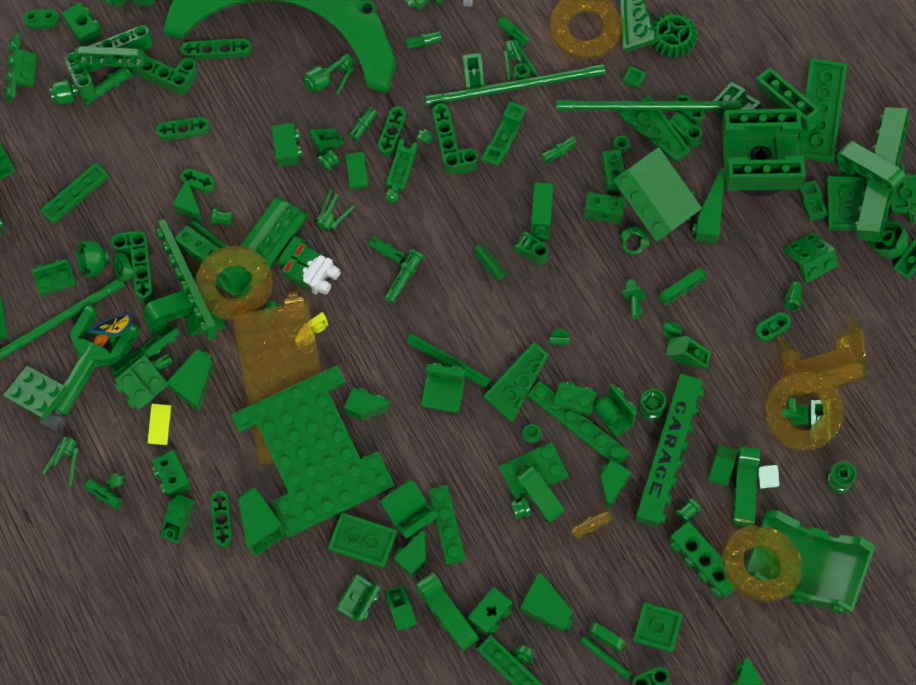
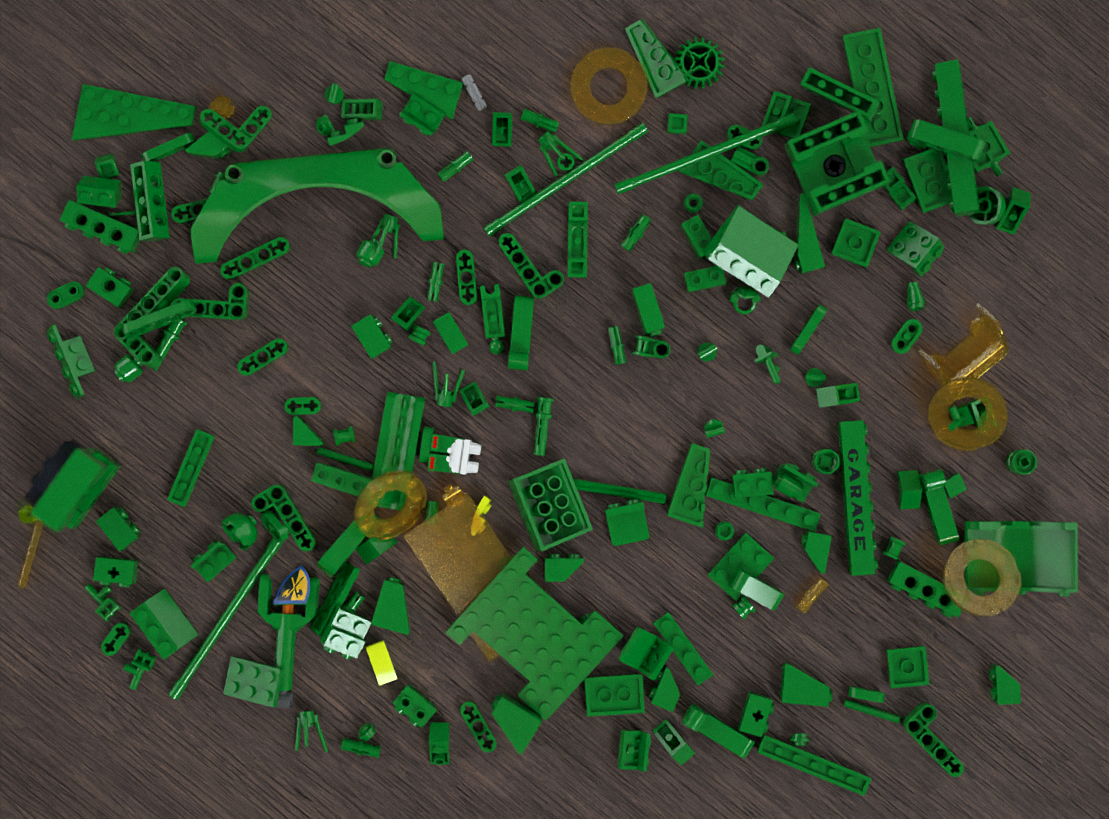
camera: 25 degrees left, 20 degrees up
(186, 280) = (348, 525): green plate -> none
(352, 233) = (474, 398): none -> green slope
(378, 345) = (550, 505): none -> green slope
(410, 206) = (521, 333): none -> green beam
(425, 136) = (501, 271): green plate -> none
(478, 23) = (502, 129): none -> green slope
(490, 262) = (618, 376): green slope -> none
(501, 235) = (617, 345): none -> green axle
(581, 271) = (707, 352): none -> green plate
(756, 230) = (855, 243): none -> green plate

